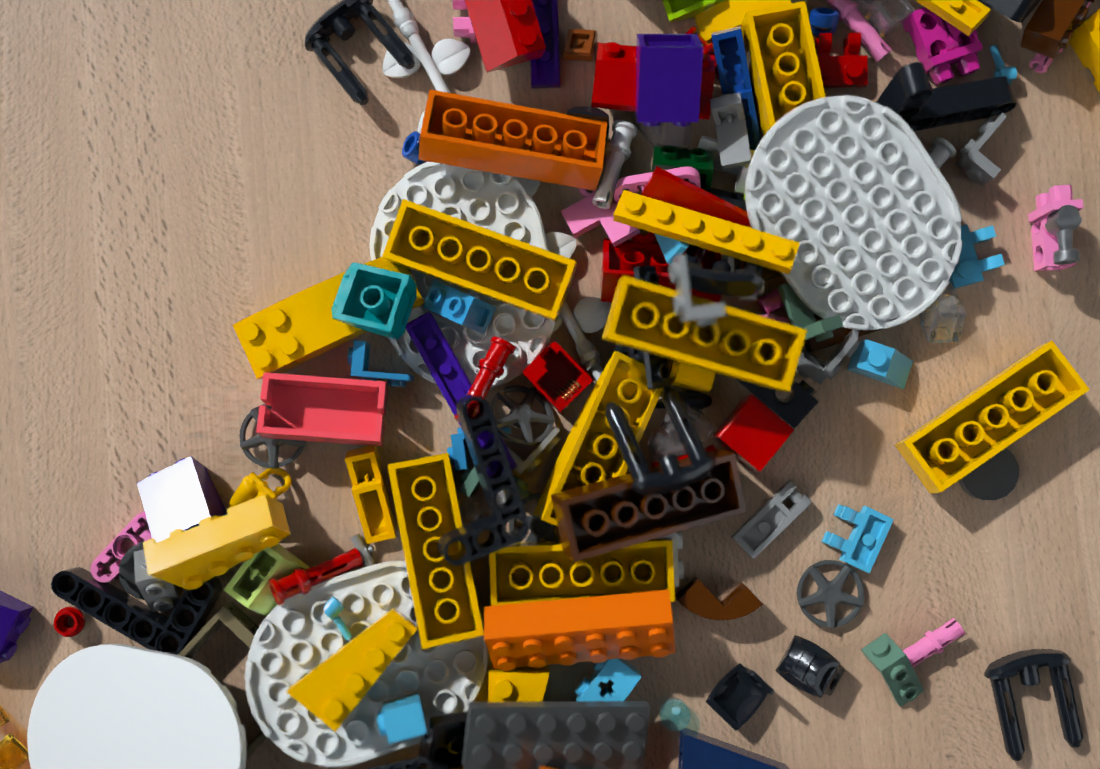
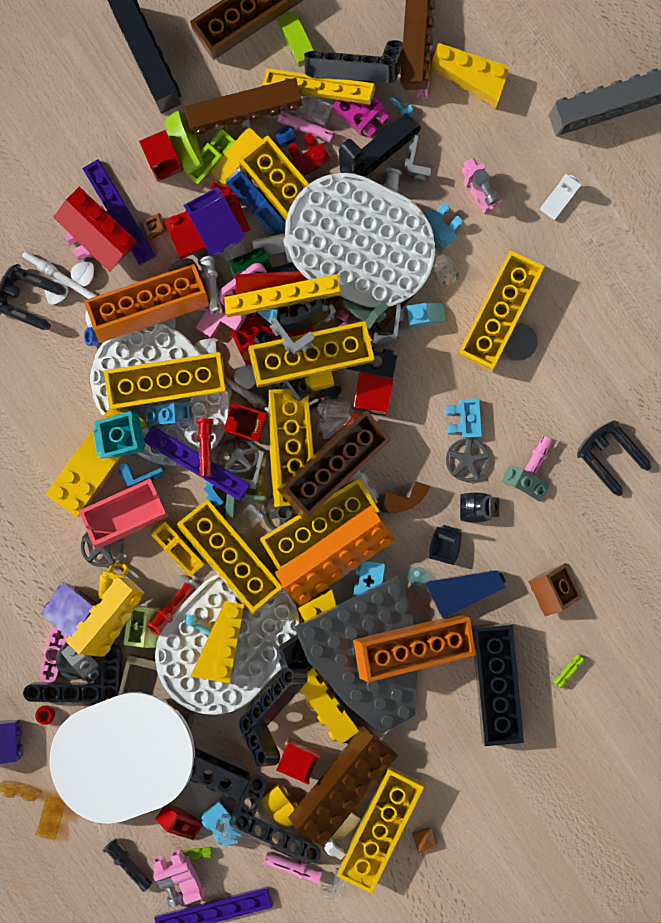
camera: 30 degrees left, 0 degrees up
(402, 718) = (262, 656): medium azure brick -> none
(491, 486) = (241, 503): black beam -> none
(673, 477) = (337, 440): black piece -> none
(731, 130) = (267, 229): light grey bracket -> none
(770, 519) = (410, 437): light grey plate -> none

